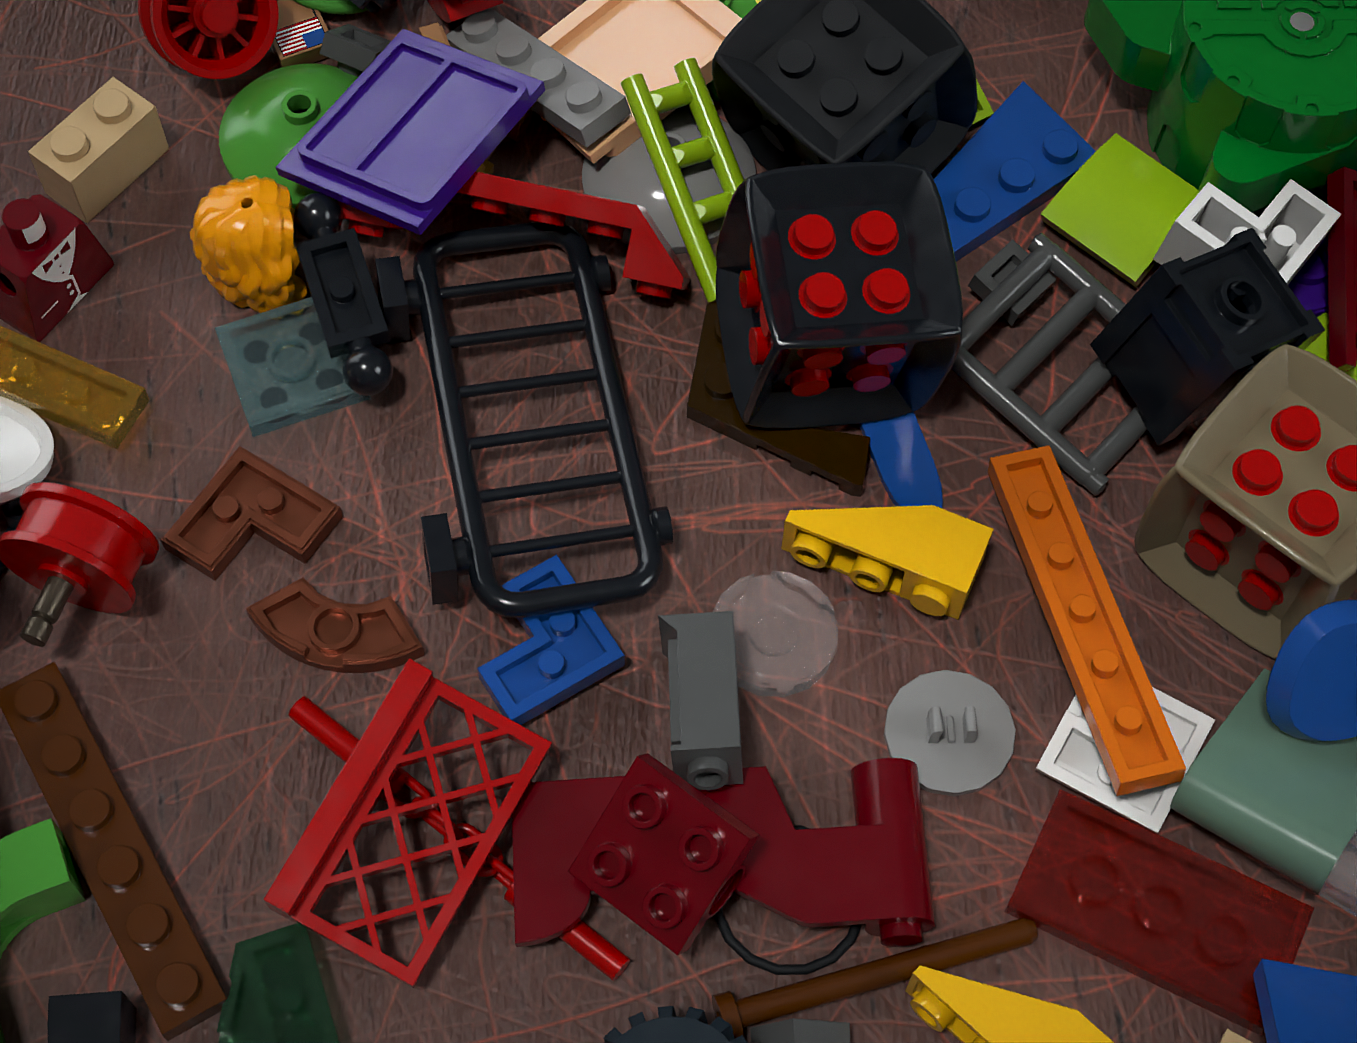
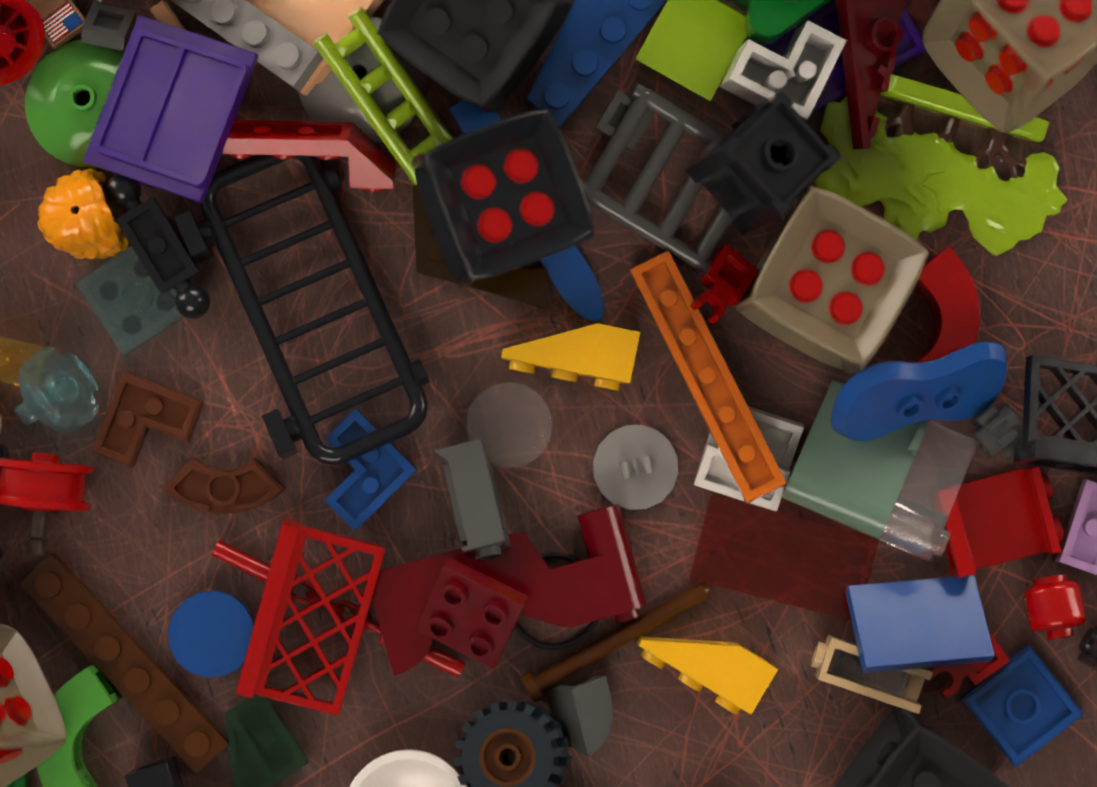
camera: 10 degrees left, 25 degrees up
(137, 441) = (56, 391): none -> clear light blue tile
(247, 827) = (210, 633): none -> blue tile
(1119, 498) = (727, 281): none -> red plate

